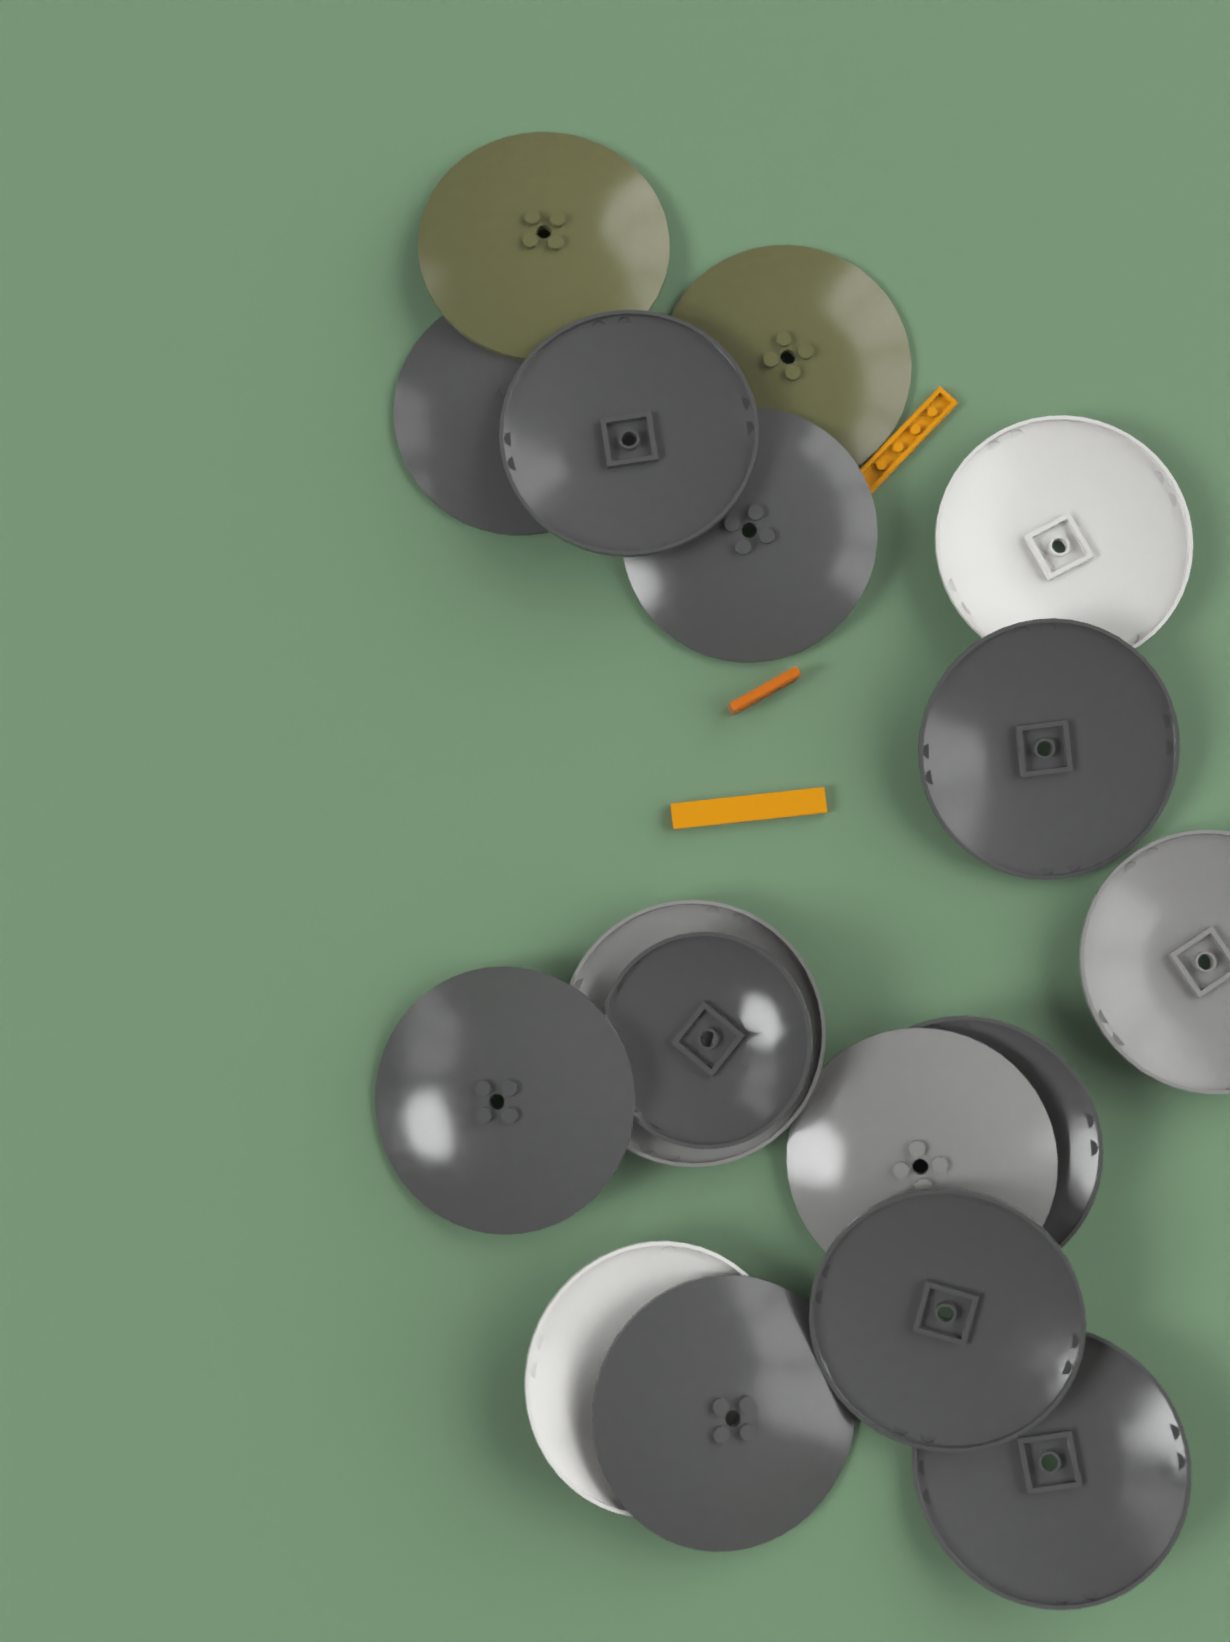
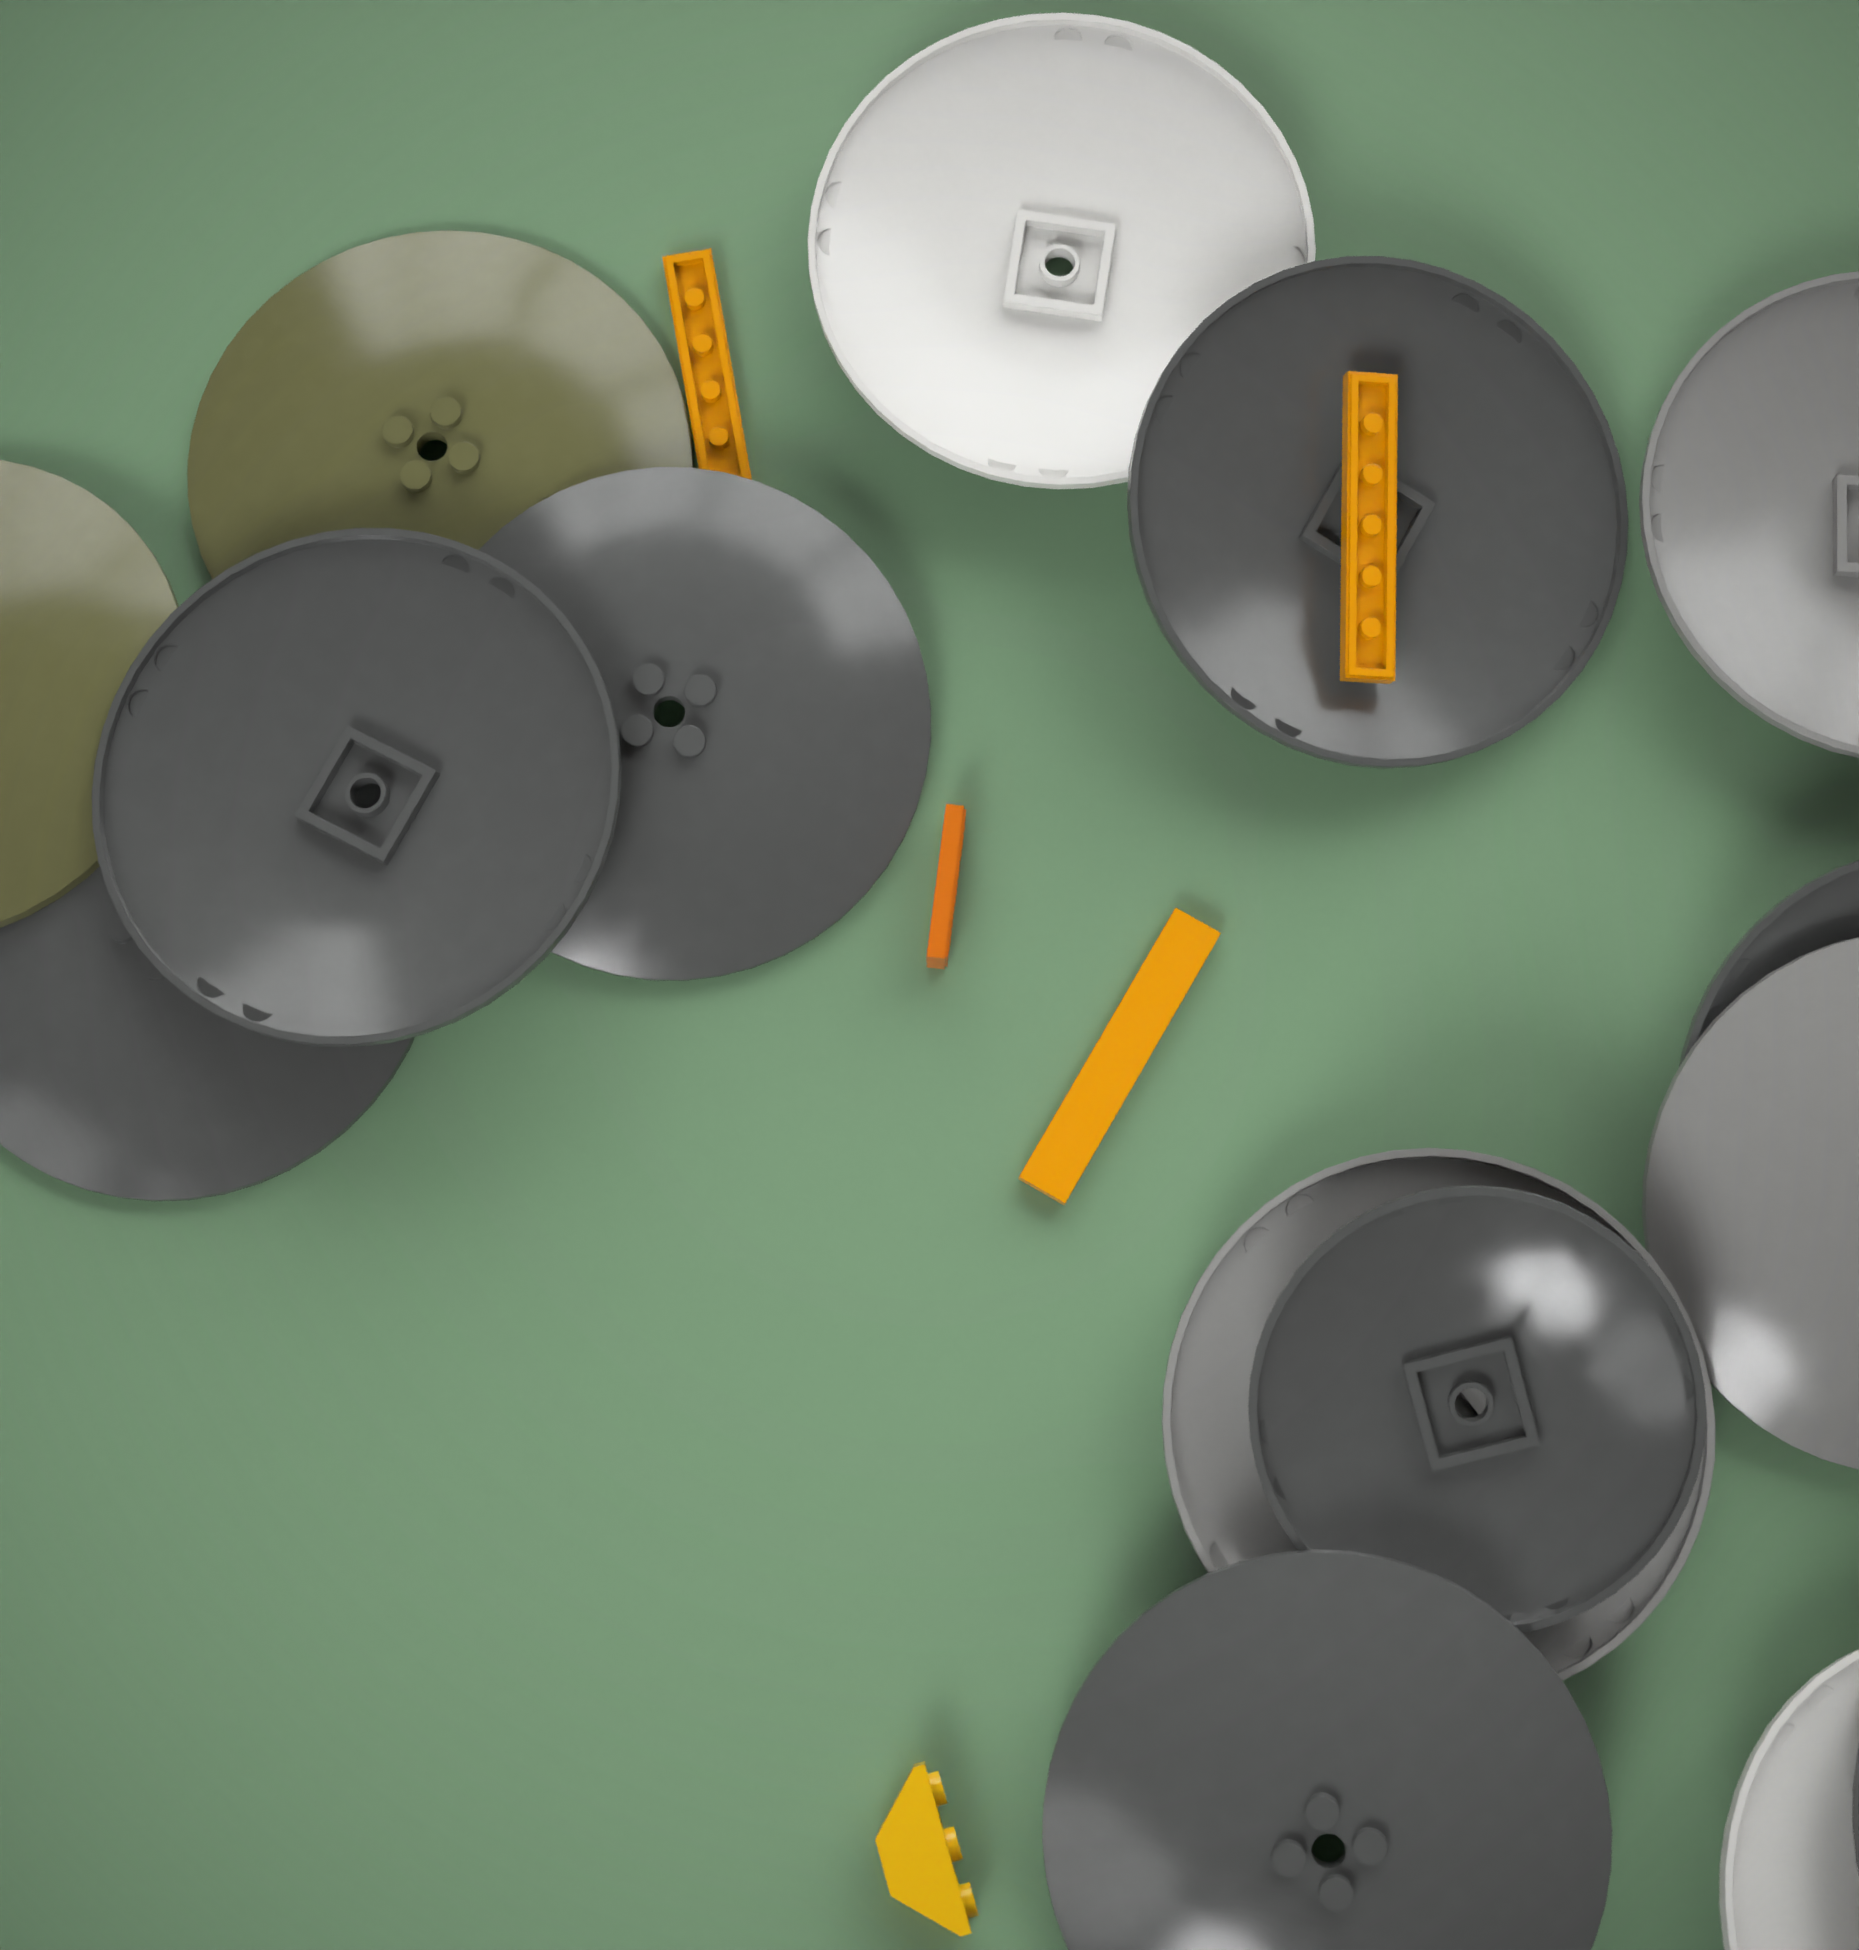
camera: 50 degrees left, 5 degrees down
(385, 953) = (921, 1854): none -> yellow slope
(1038, 749) = (1368, 527): none -> light orange tile

